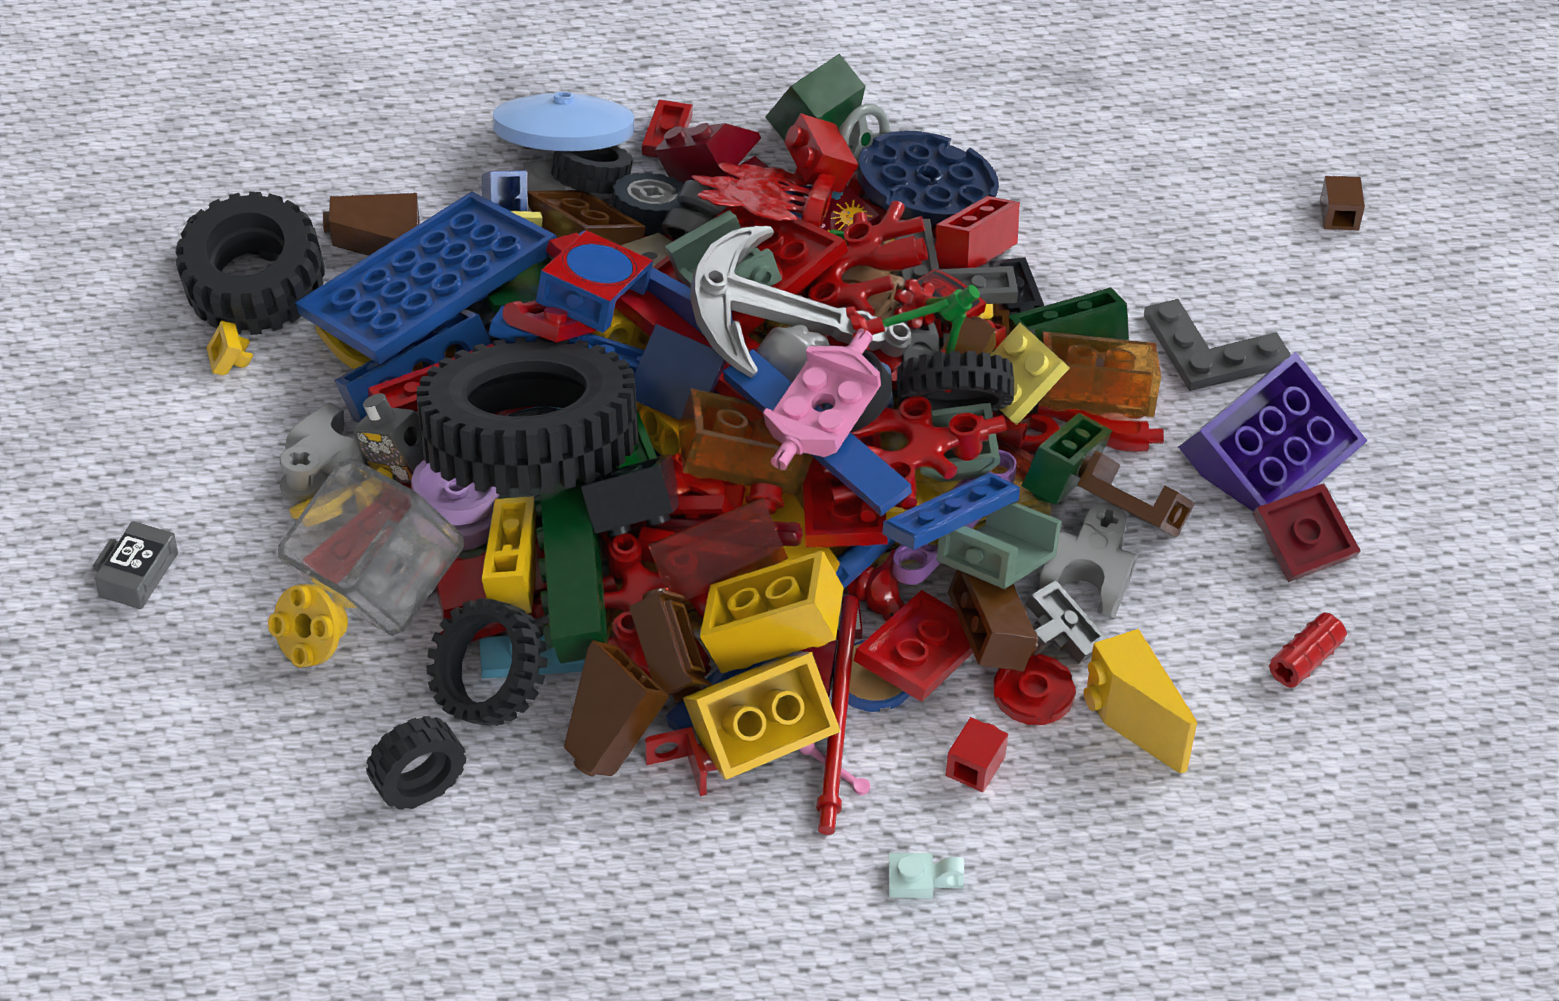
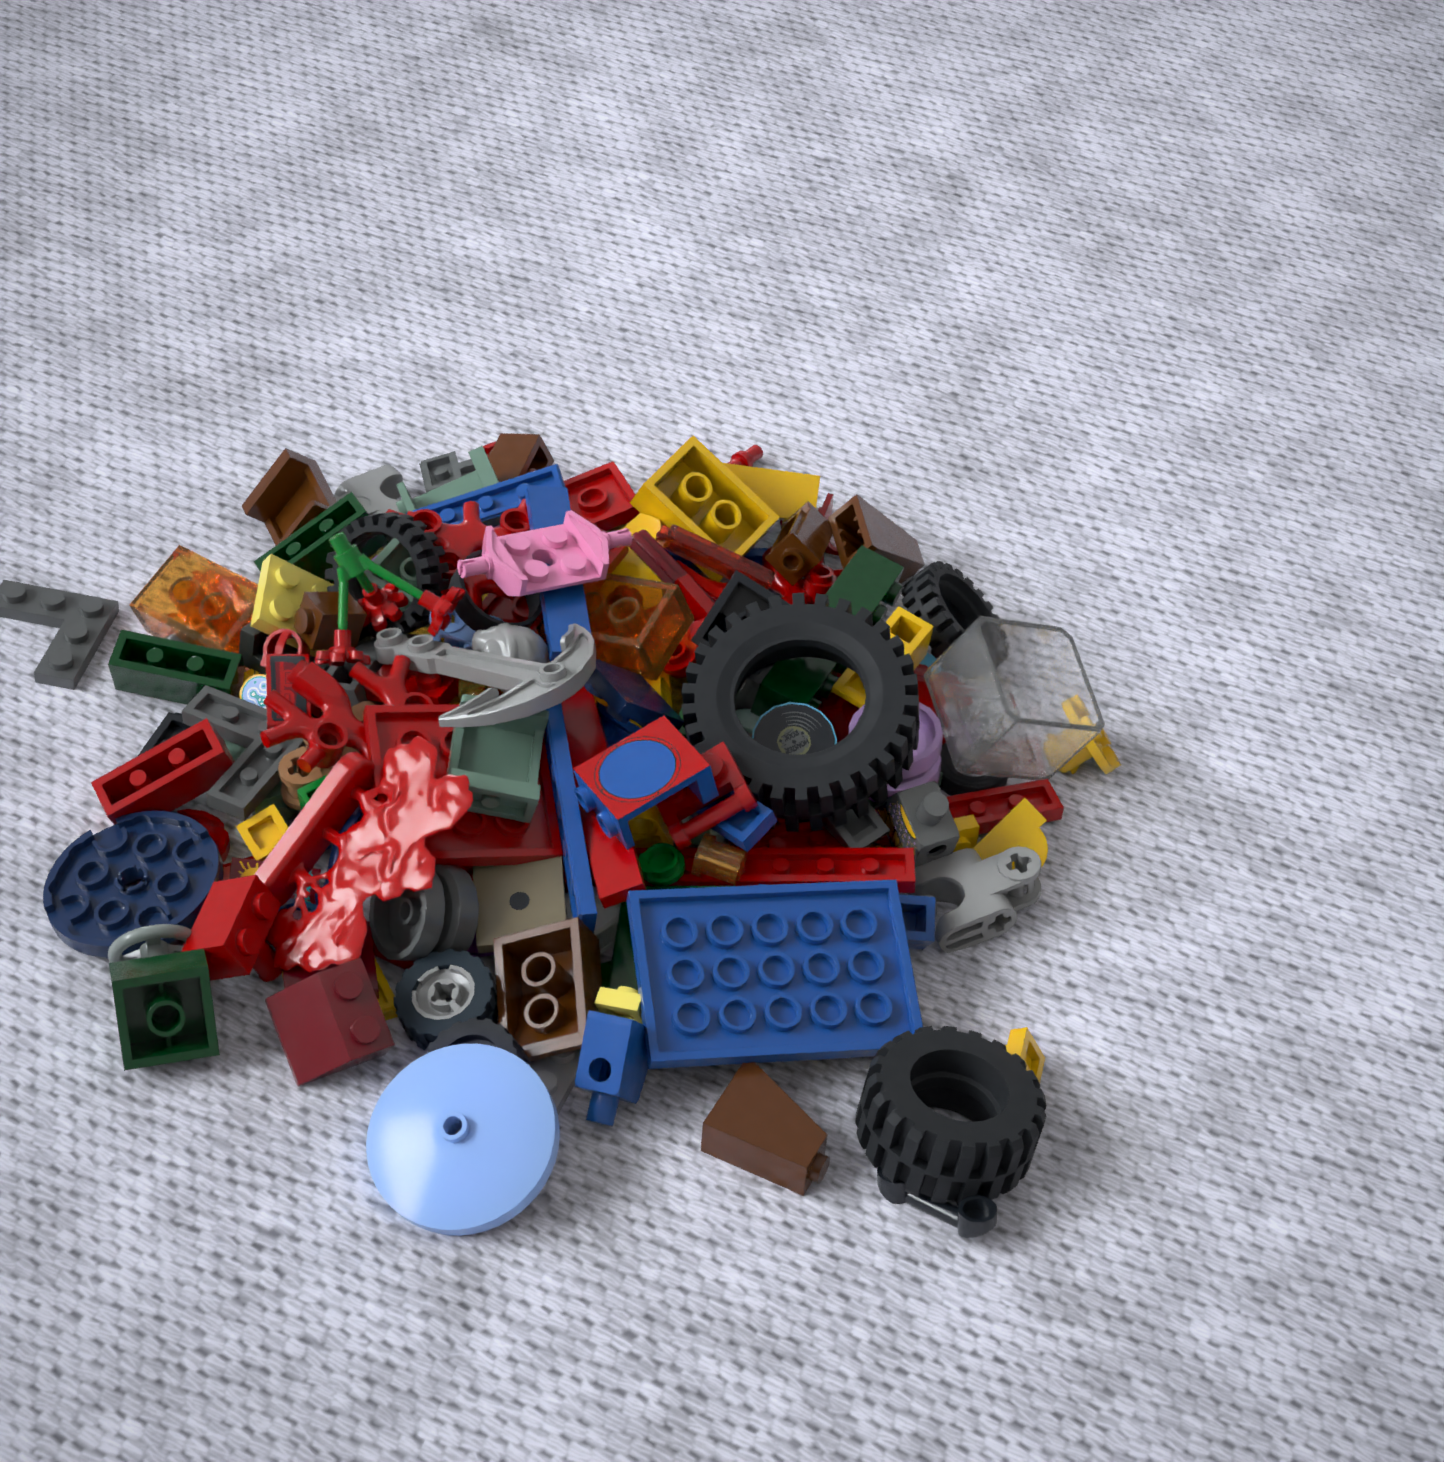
camera: 150 degrees left, 5 degrees down
(134, 564) = (1219, 883): dark grey piece -> none
(403, 746) = (1057, 564): black tyre -> none
(665, 117) = (335, 1106): red plate -> none
(916, 875) = (712, 404): light aqua plate -> none
(976, 754) = (603, 436): red brick -> none
(1140, 699) = (453, 399): yellow slope -> none
(1274, 437) = (112, 529): dark purple slope -> none
(1306, 532) = (180, 451): dark red hinge -> none
(1307, 650) = (279, 390): red axle -> none

